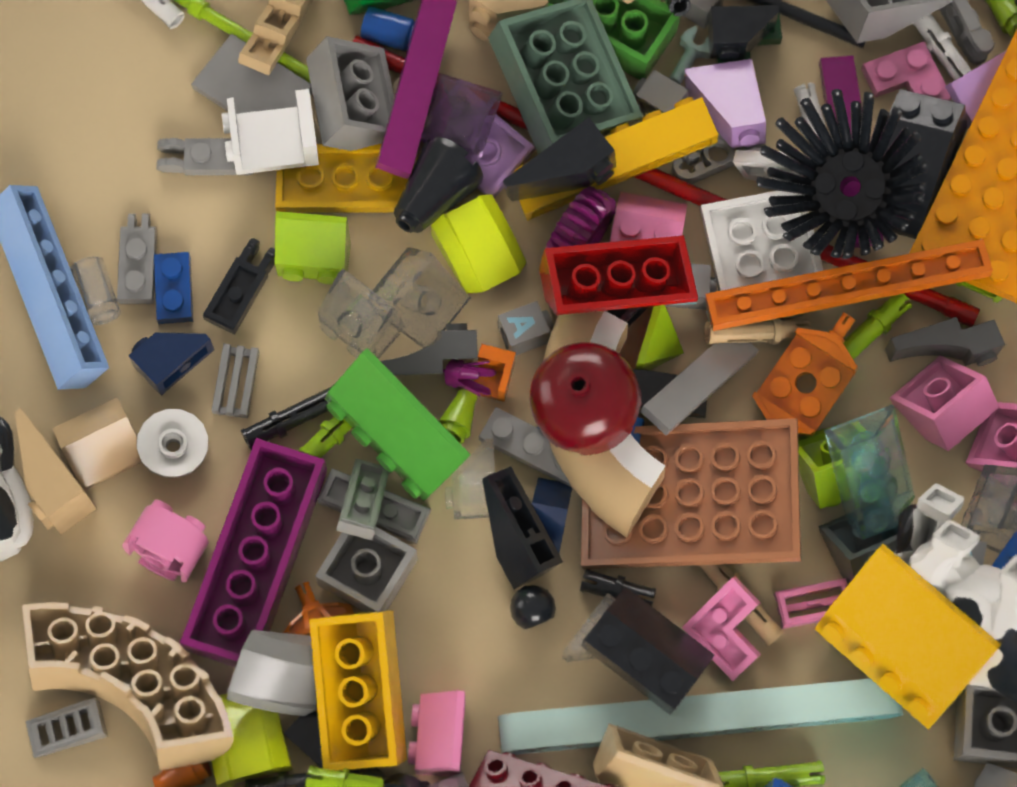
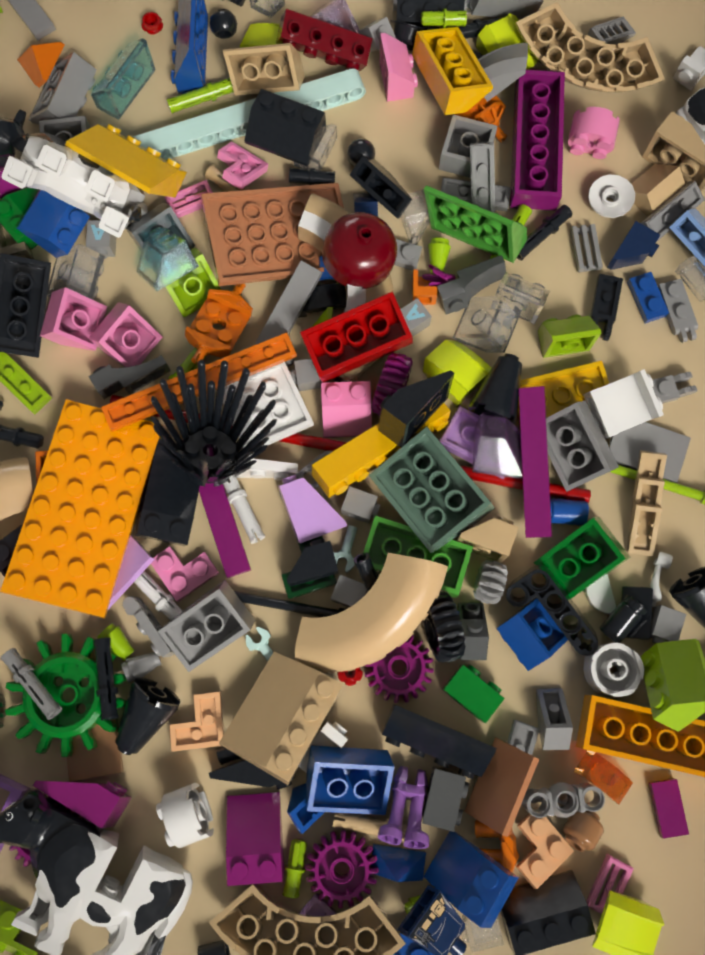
camera: 170 degrees right, 5 degrees up
(88, 401) = (685, 199): none -> light grey tile

